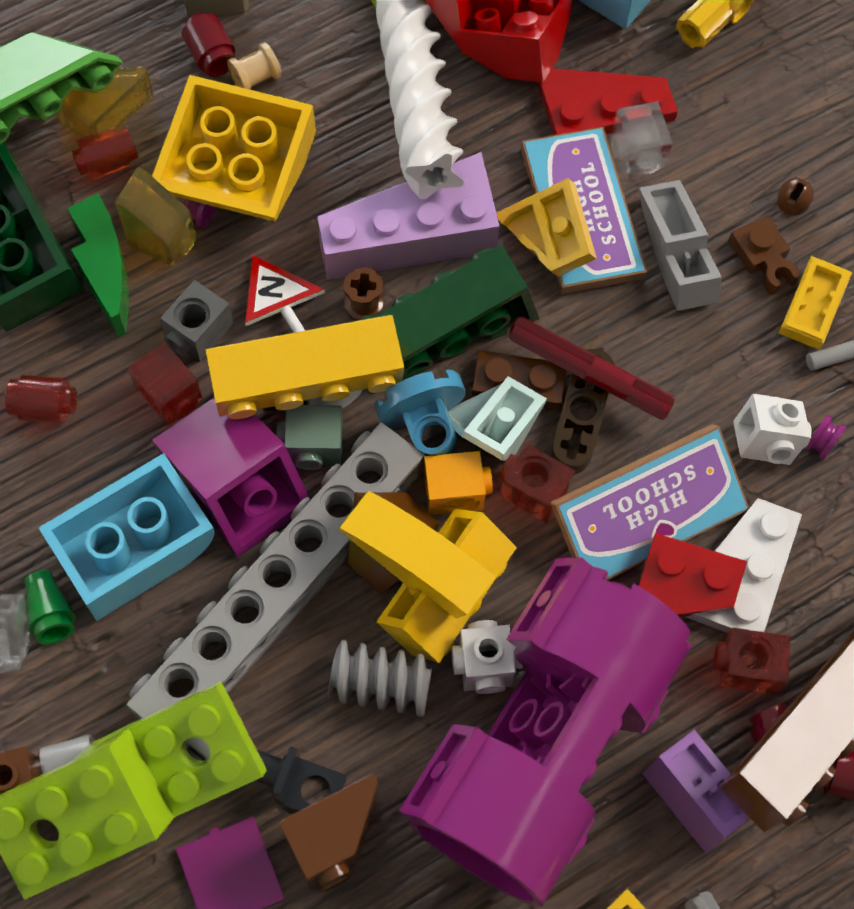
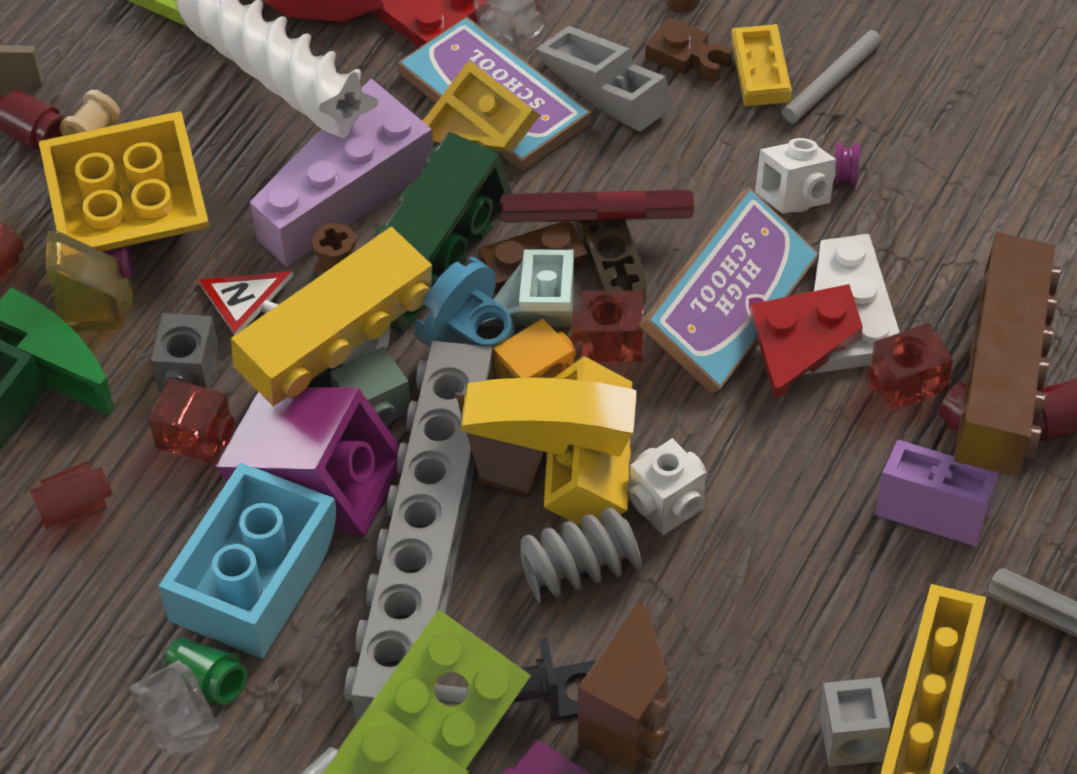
camera: 25 degrees left, 15 degrees down
(591, 667) = (772, 557): magenta cylinder -> none

